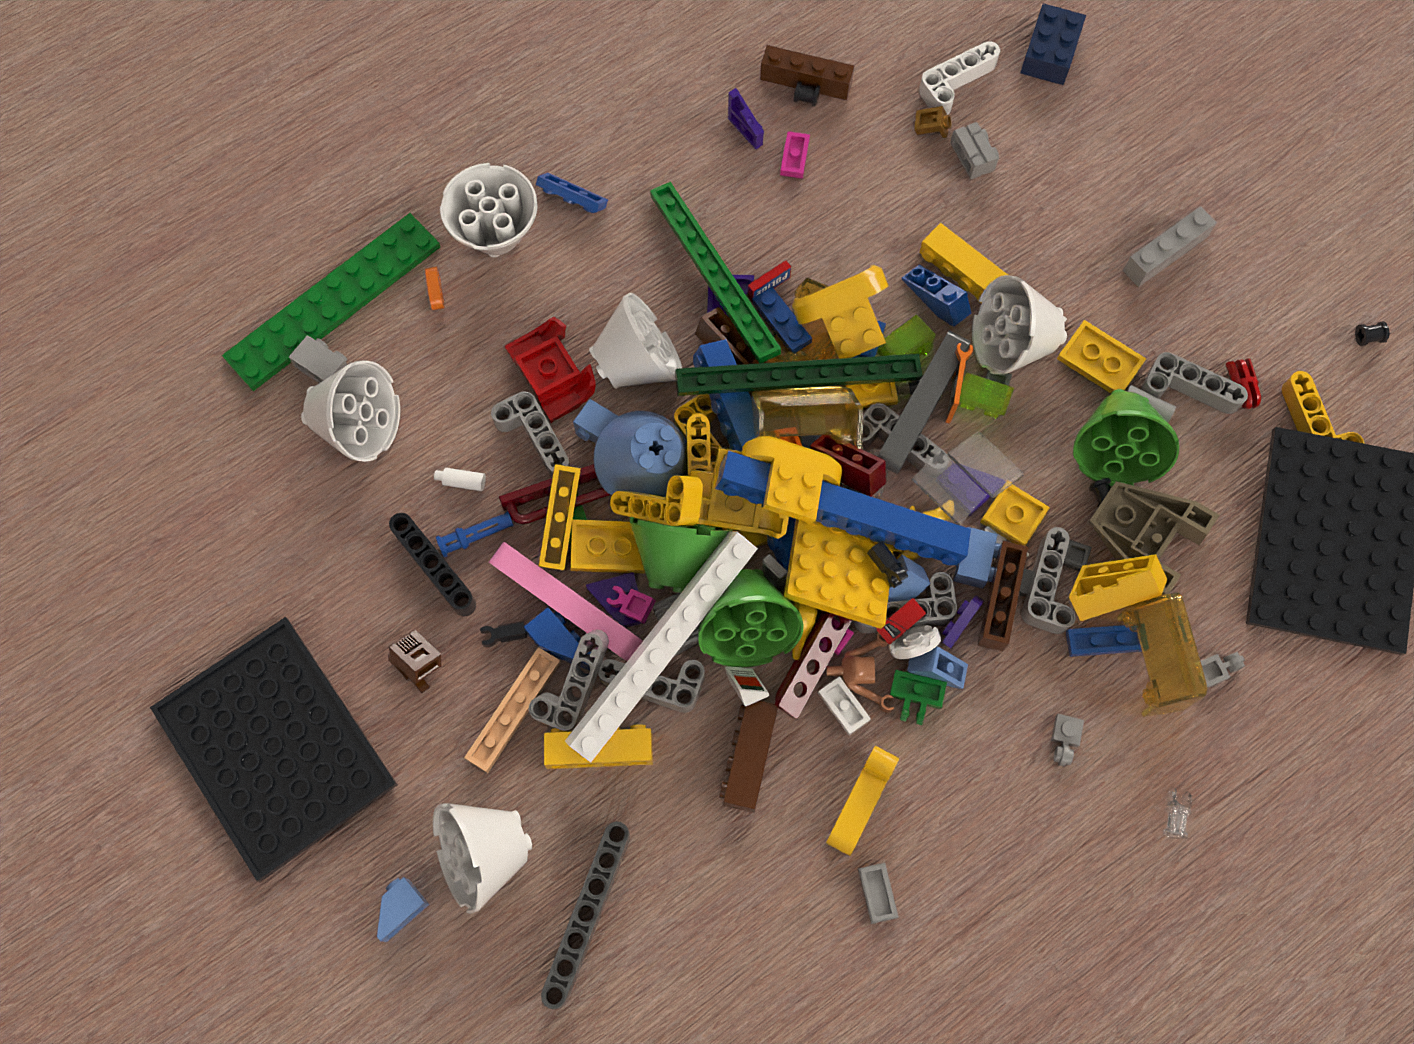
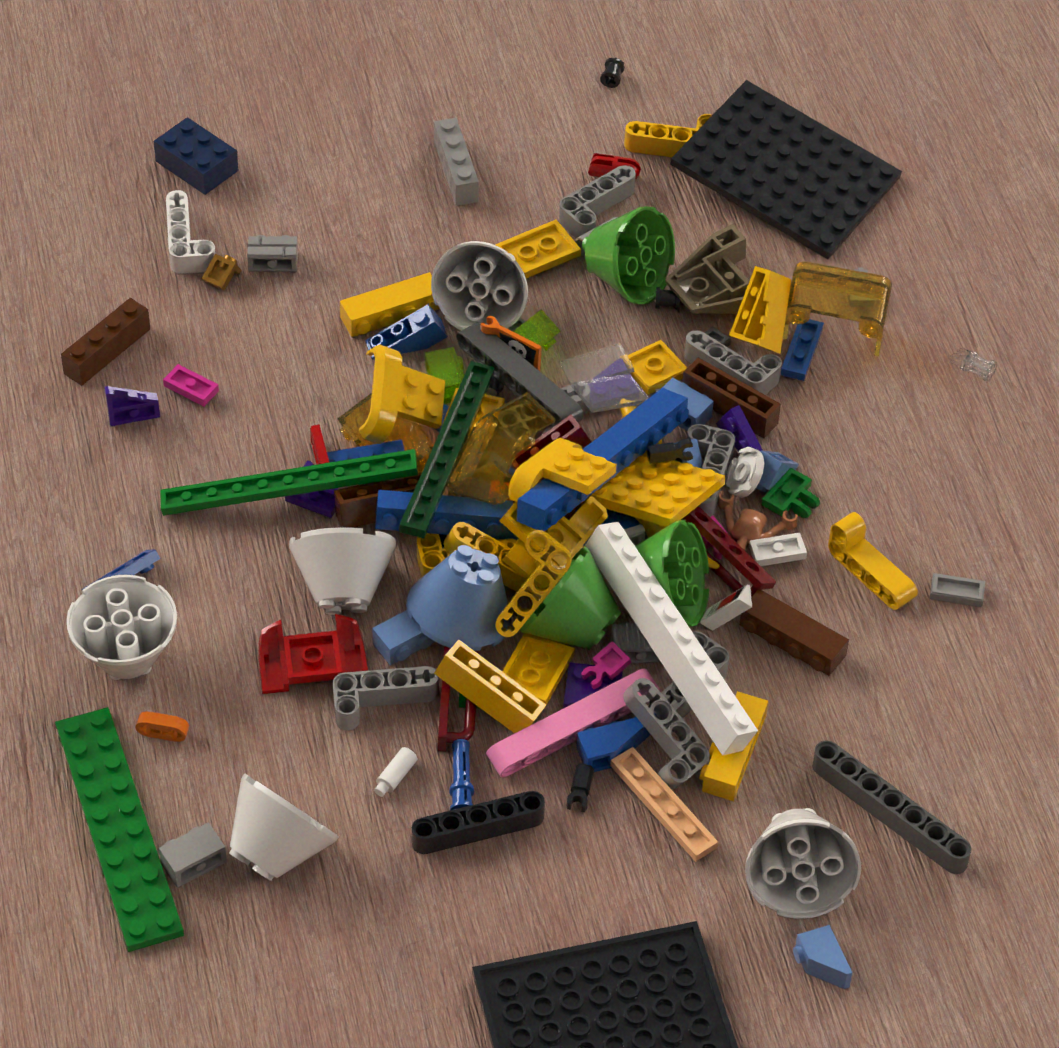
camera: 70 degrees left, 20 degrees down
(415, 659) = (574, 866): reddish brown piece -> none
(807, 93) = (128, 351): black bush -> none
(901, 621) = (720, 465): red sticker -> none
(1068, 732) = (872, 408): light grey plate -> none

